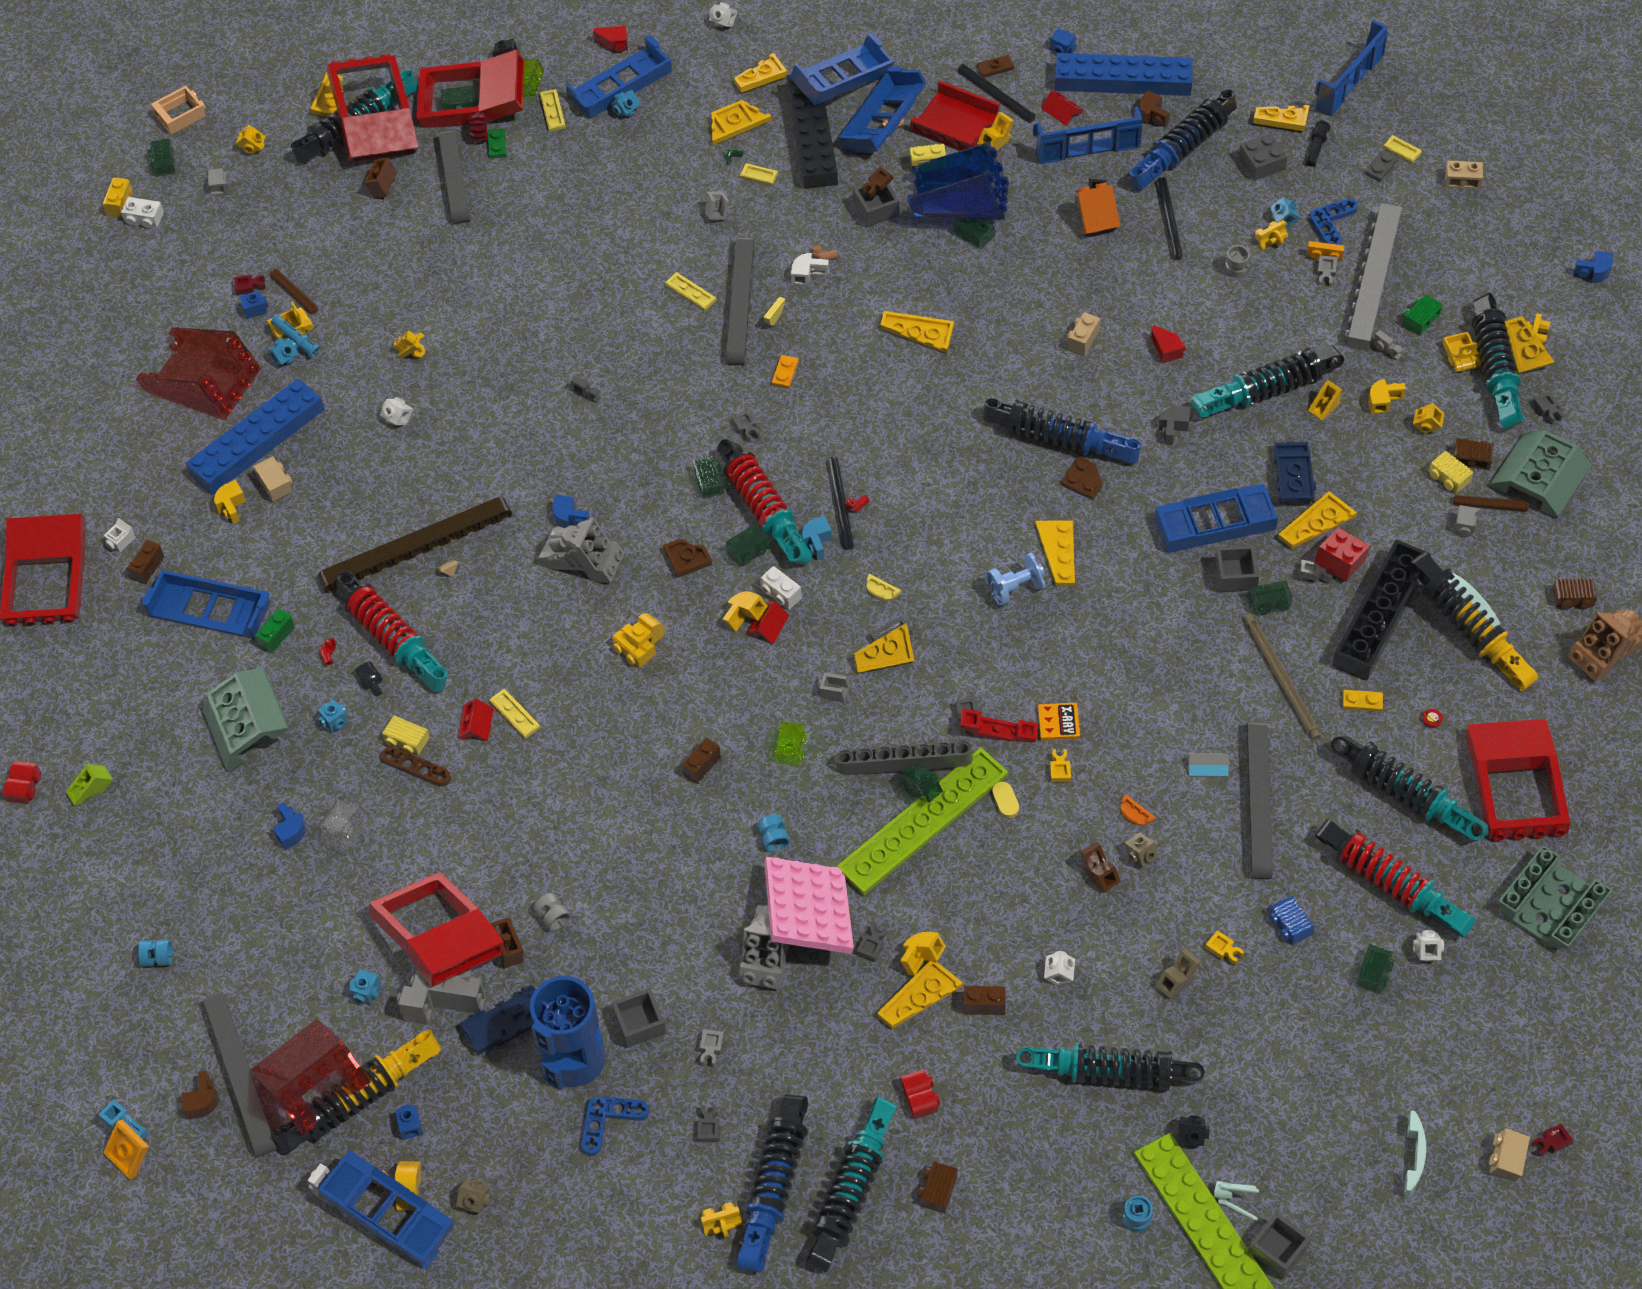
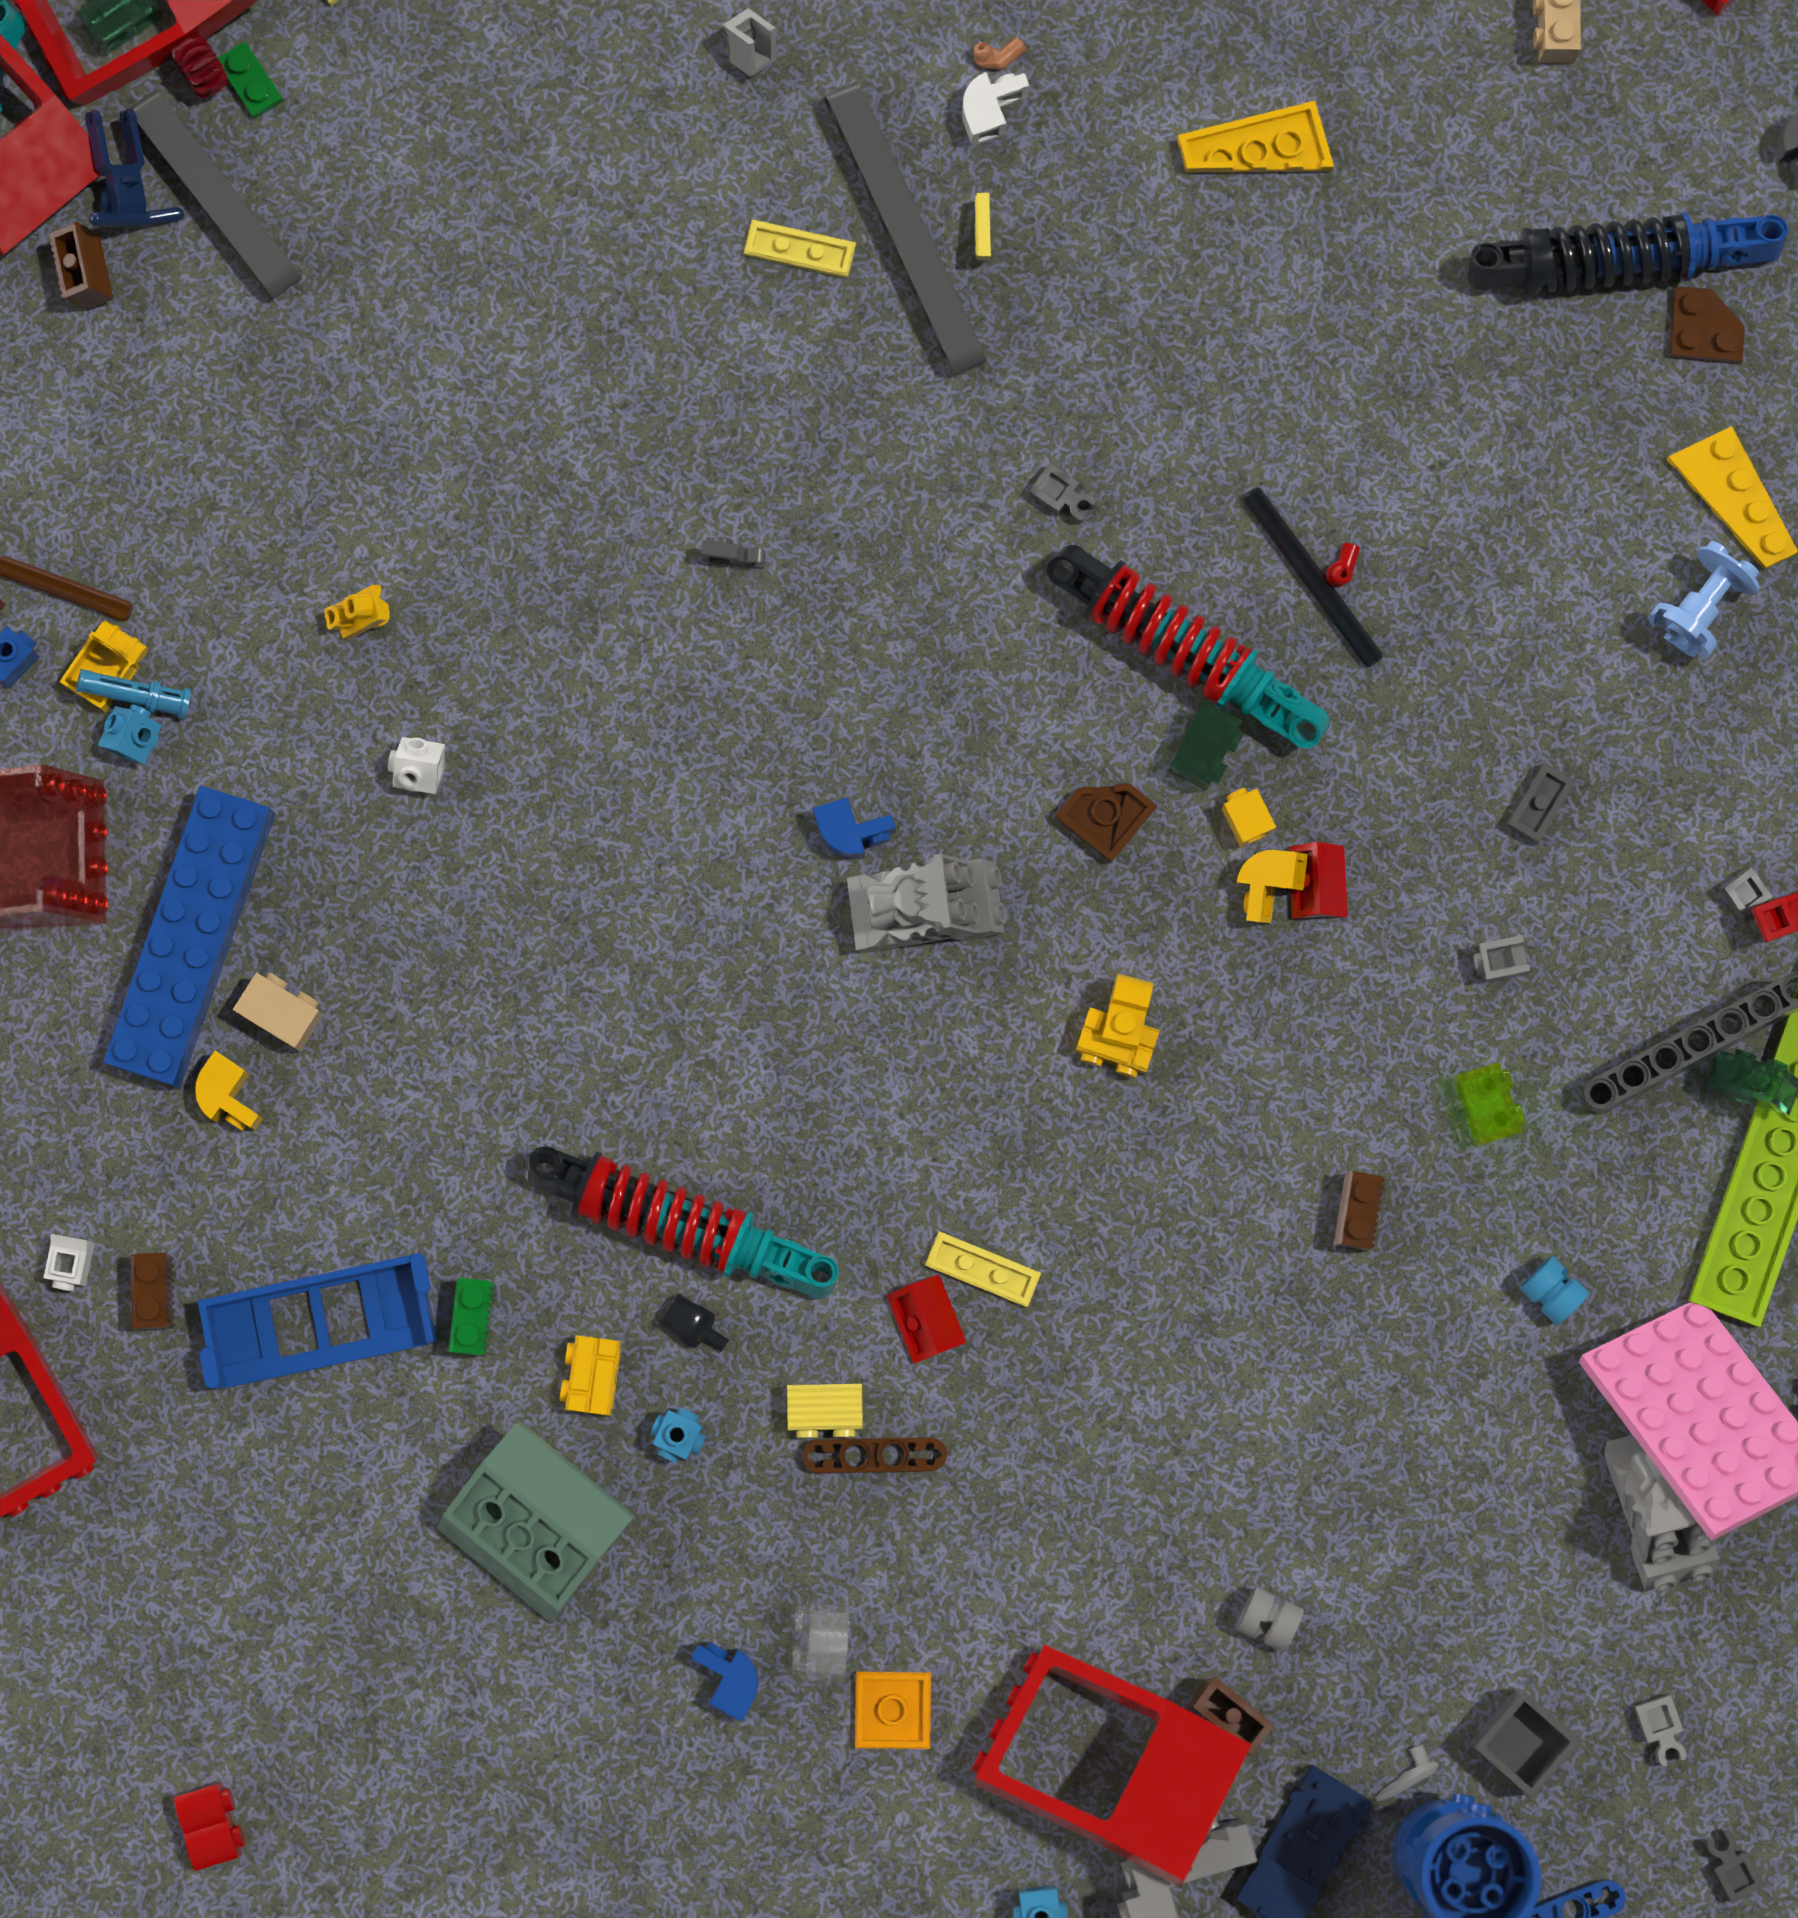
camera: 30 degrees left, 25 degrees up
(90, 781) = (331, 1772): lime arch -> none
(311, 677) = (591, 1375): none -> yellow brick
(327, 650) = (583, 1307): red arm -> none
(355, 875) = (893, 1710): none -> light orange tile
(415, 161) = (124, 196): none -> dark blue piece
(417, 542) = (612, 1021): dark brown beam -> none
(448, 568) = (705, 1042): tan slope -> none
(708, 477) = (1057, 635): clear green brick -> none
(750, 580) = (1248, 816): none -> yellow brick
(781, 588) = (1309, 806): white brick -> none
(785, 371) = (1066, 345): light orange plate -> none
(815, 533) = (1304, 666): dark azure brick -> none
(881, 589) = (1473, 720): light yellow tile -> none
(886, 651) = (1555, 847): yellow wing -> none

